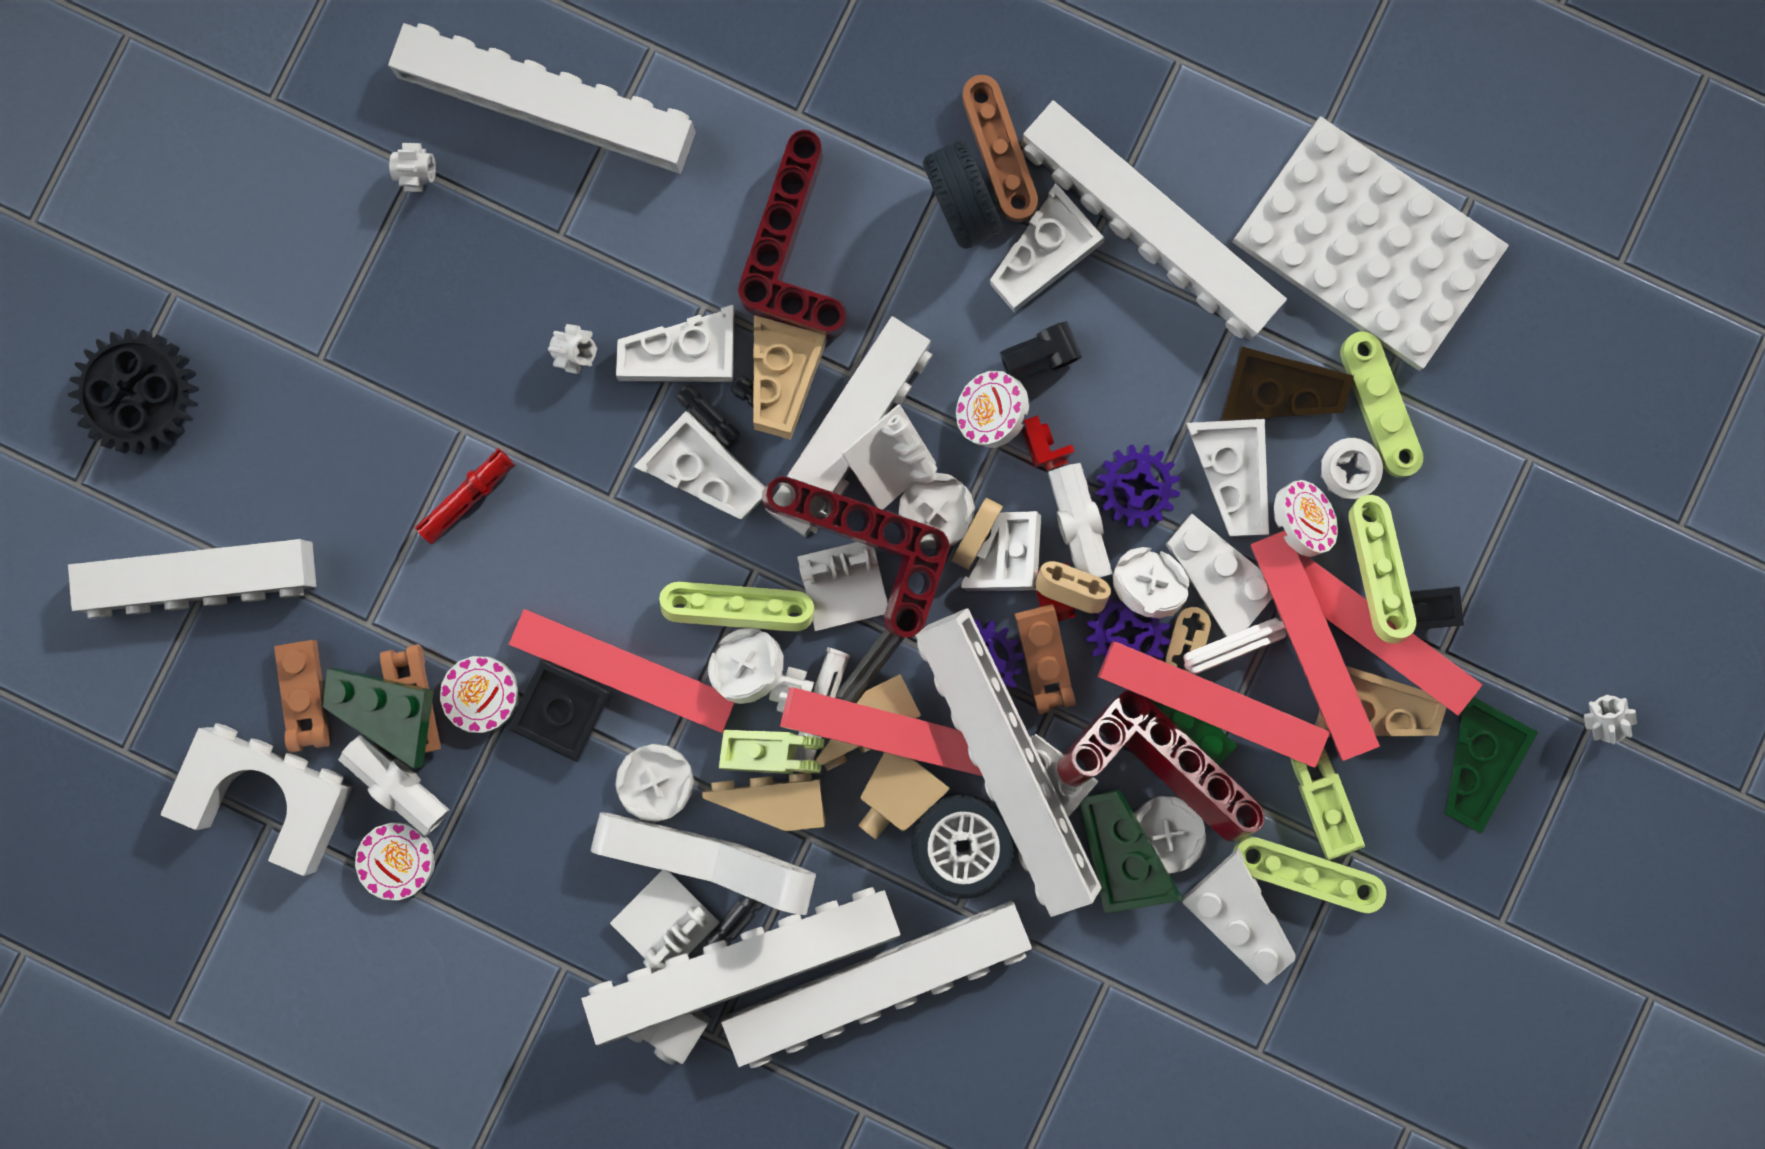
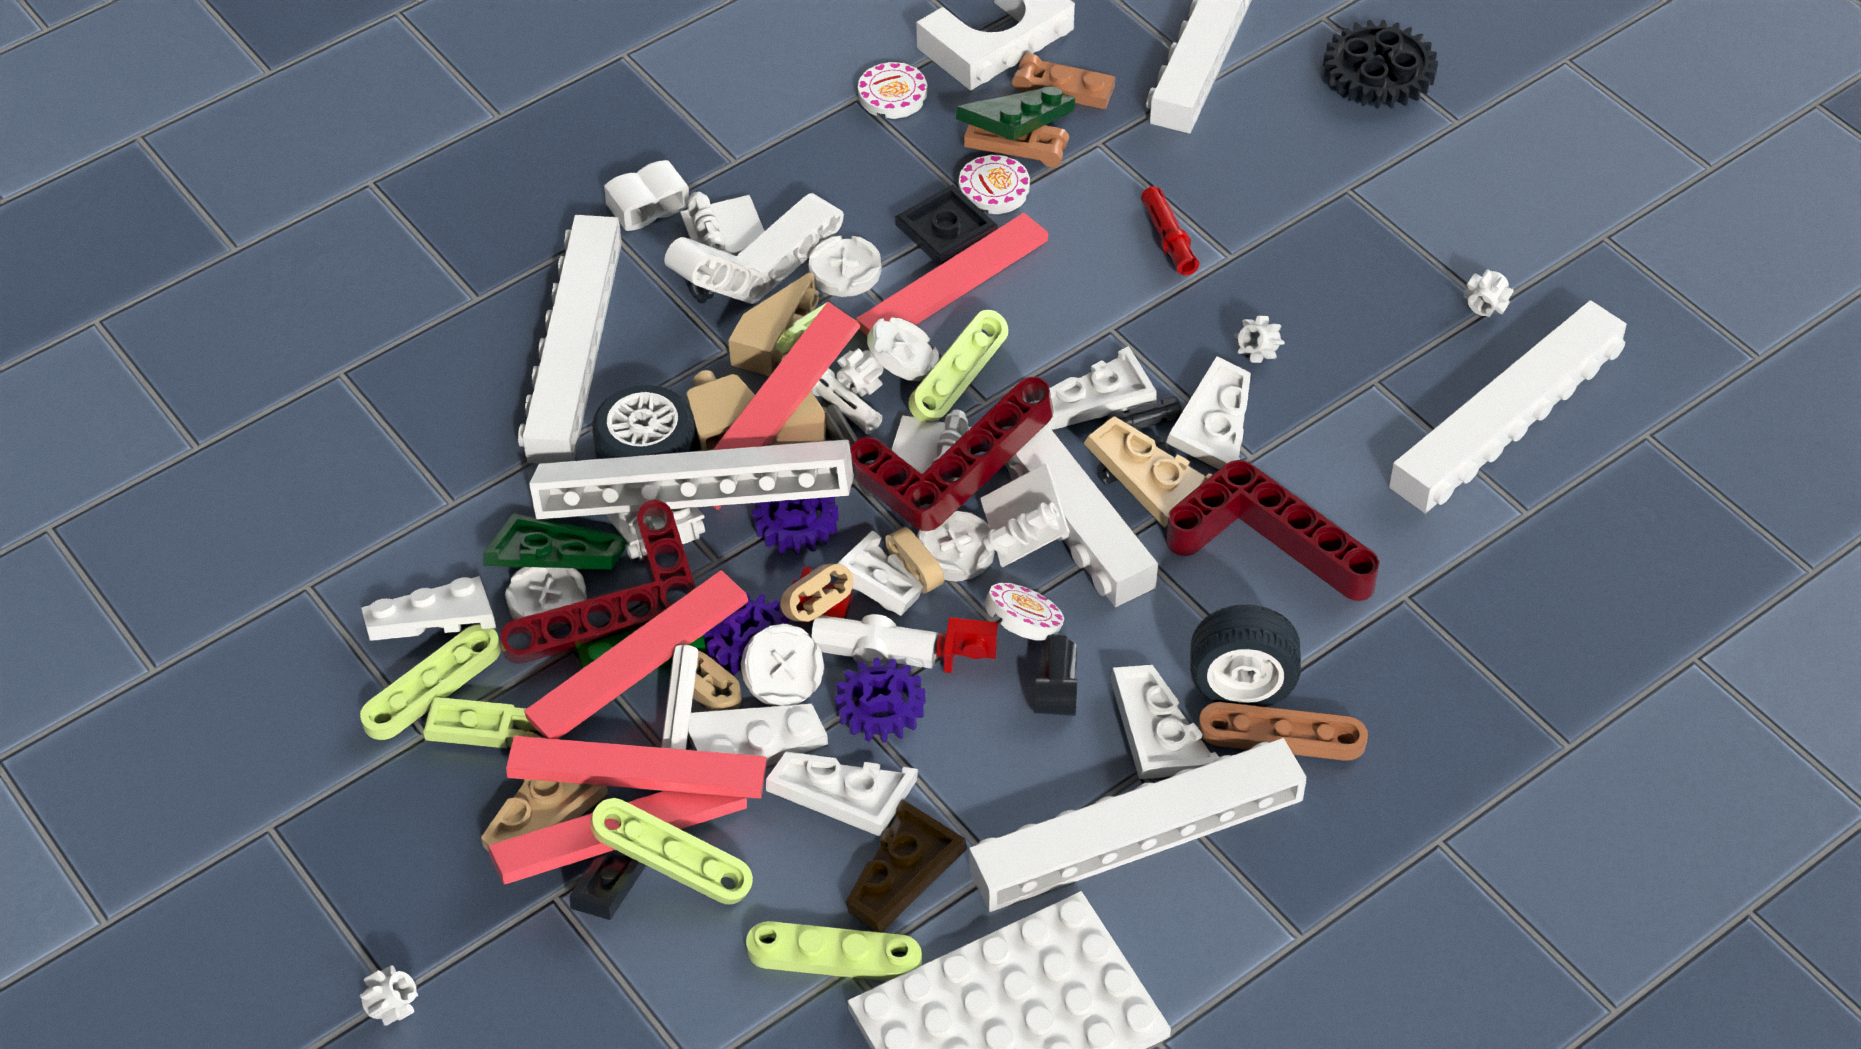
camera: 115 degrees right, 35 degrees down
(393, 784) = (942, 106): white piece -> none
(740, 967) = (655, 226): white brick -> none
(1044, 658) = (766, 555): nougat plate -> none
(1306, 518) = (761, 816): white tile -> none
(1366, 459) = (785, 875): white gear -> none
(1484, 762) = (427, 874): dark green wing -> none

